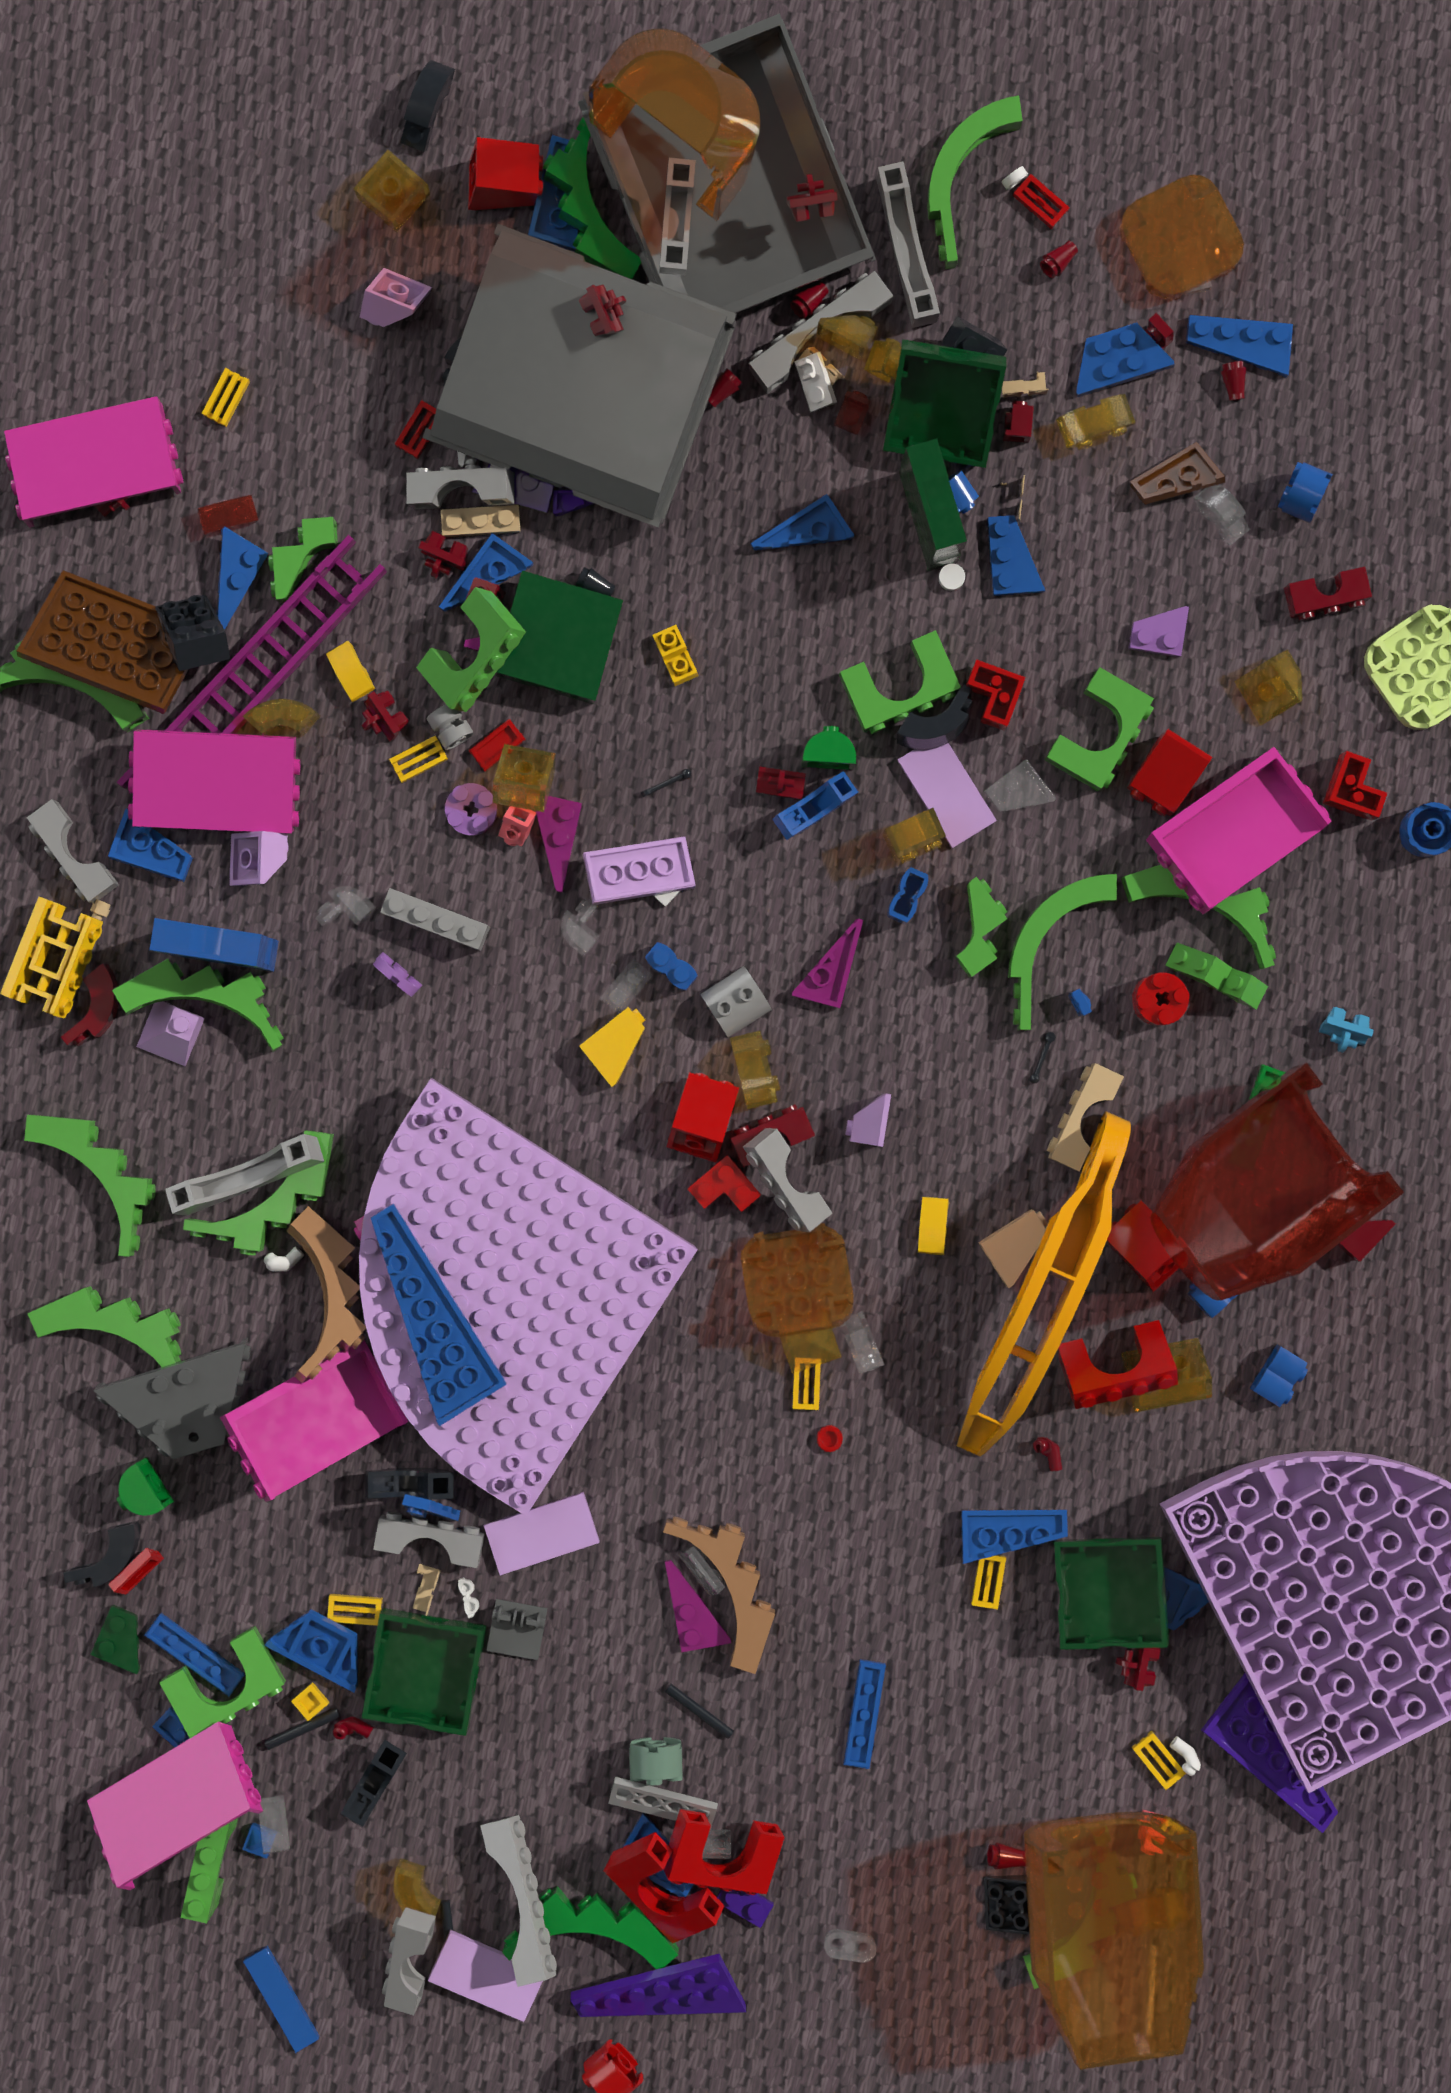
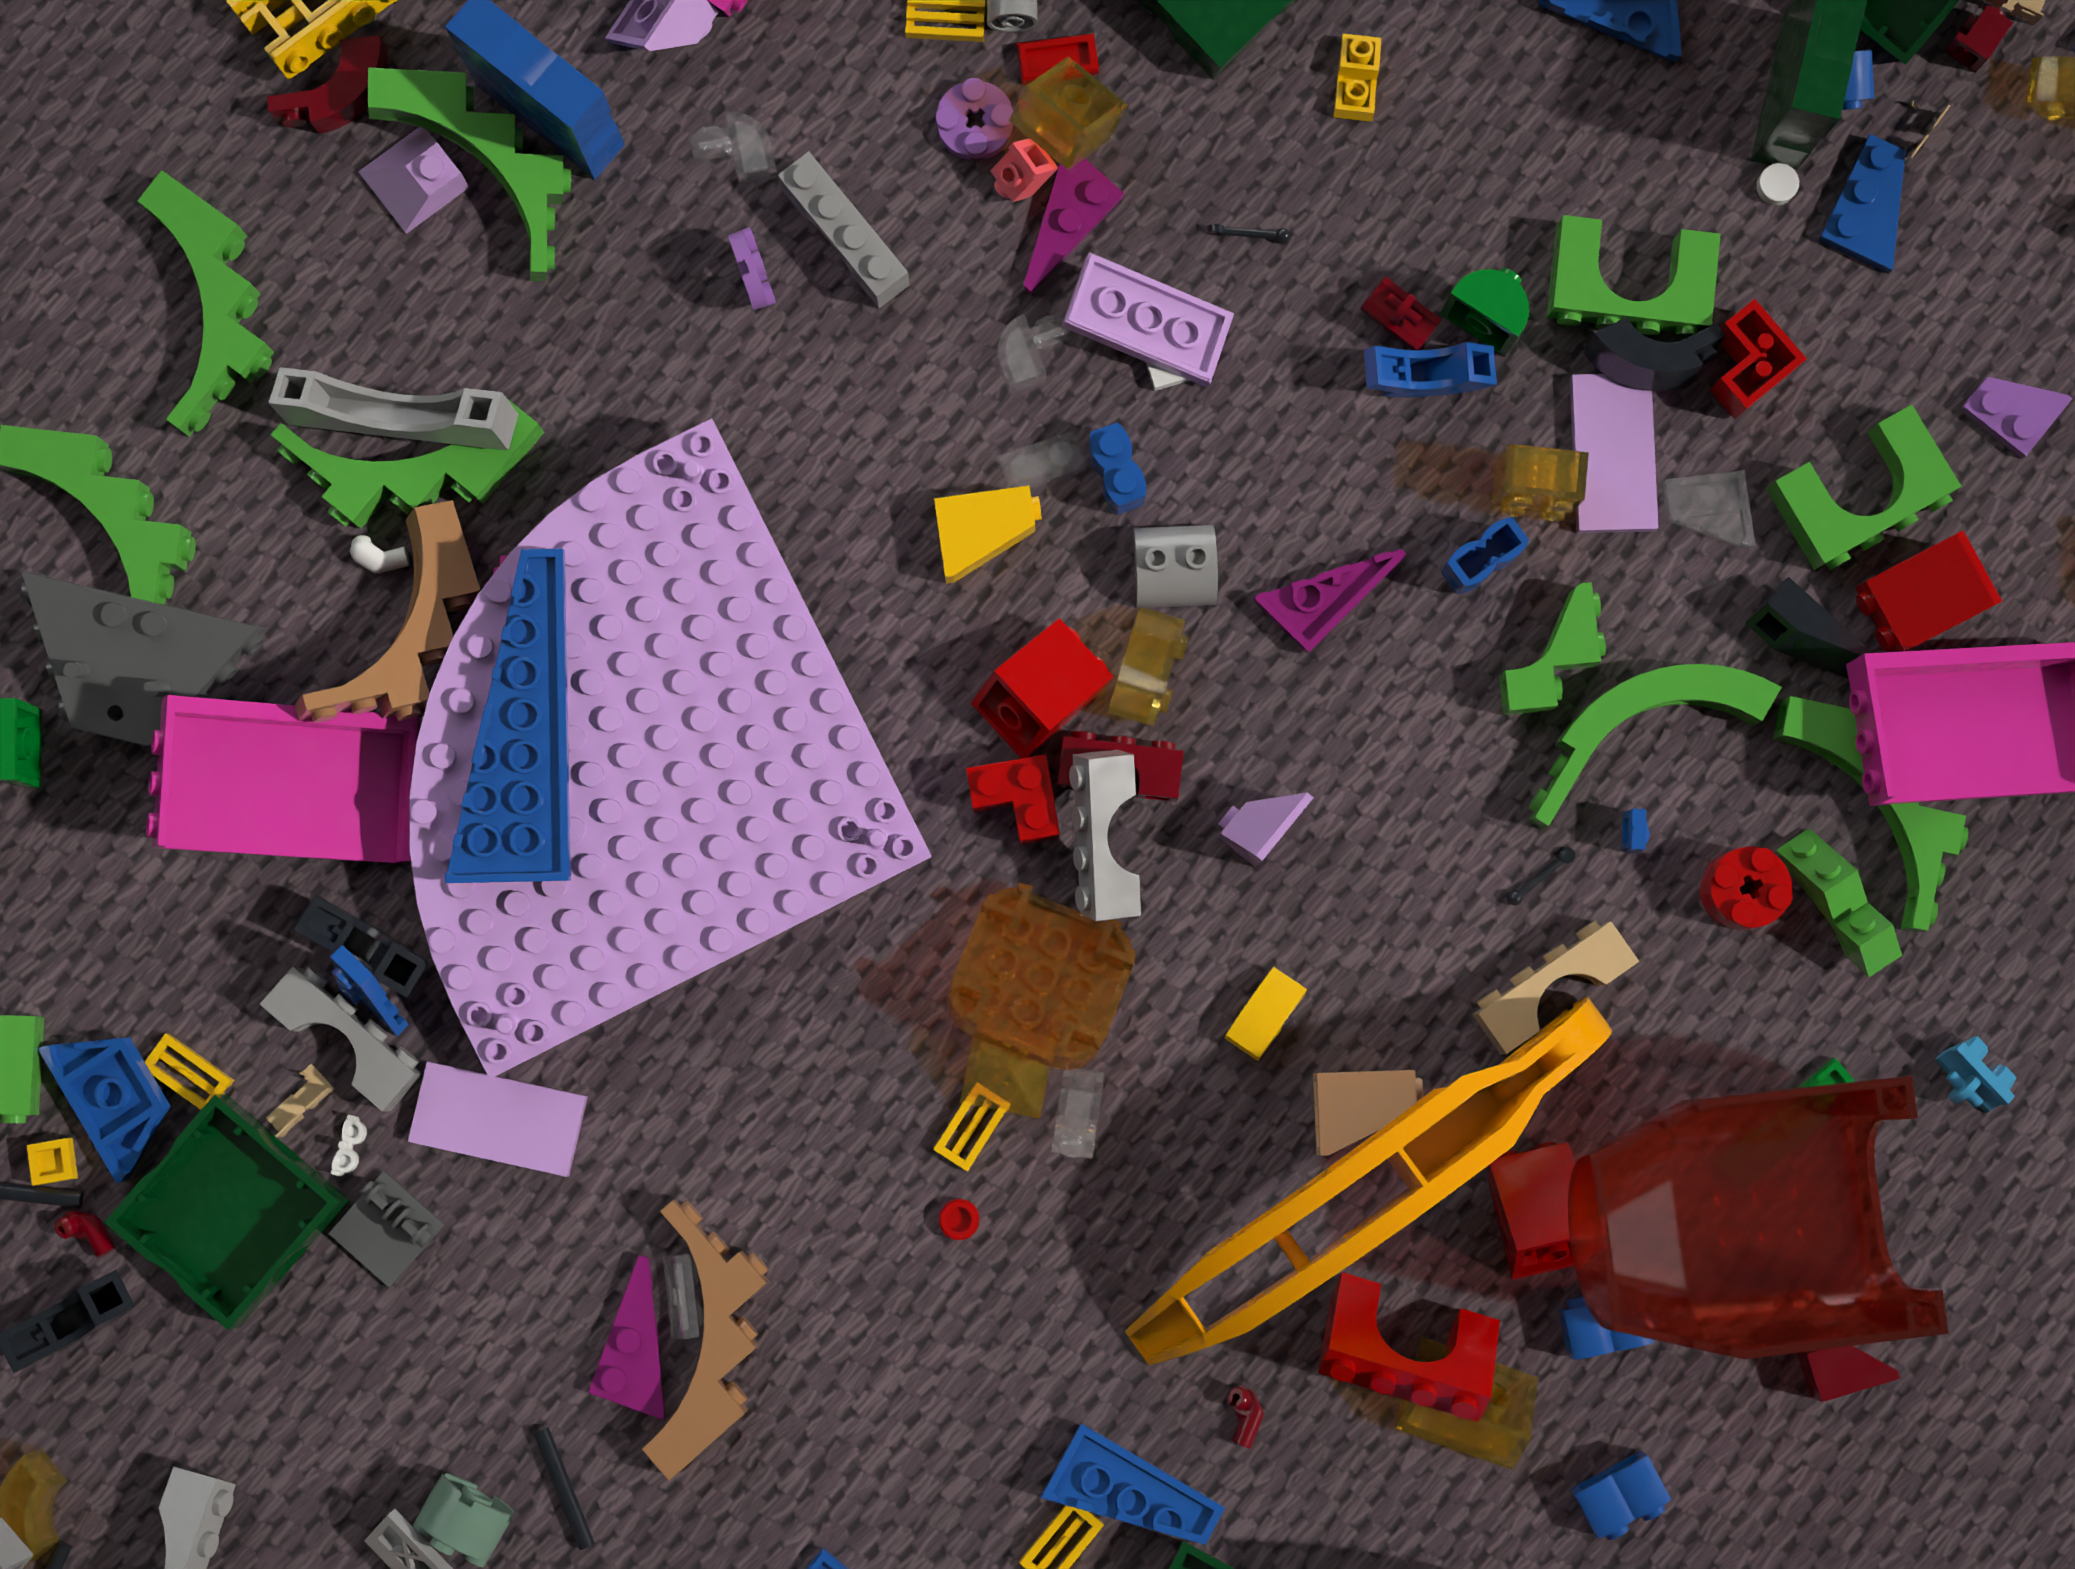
camera: 30 degrees right, 5 degrees down
(1111, 832) = (1805, 630): none -> black slope

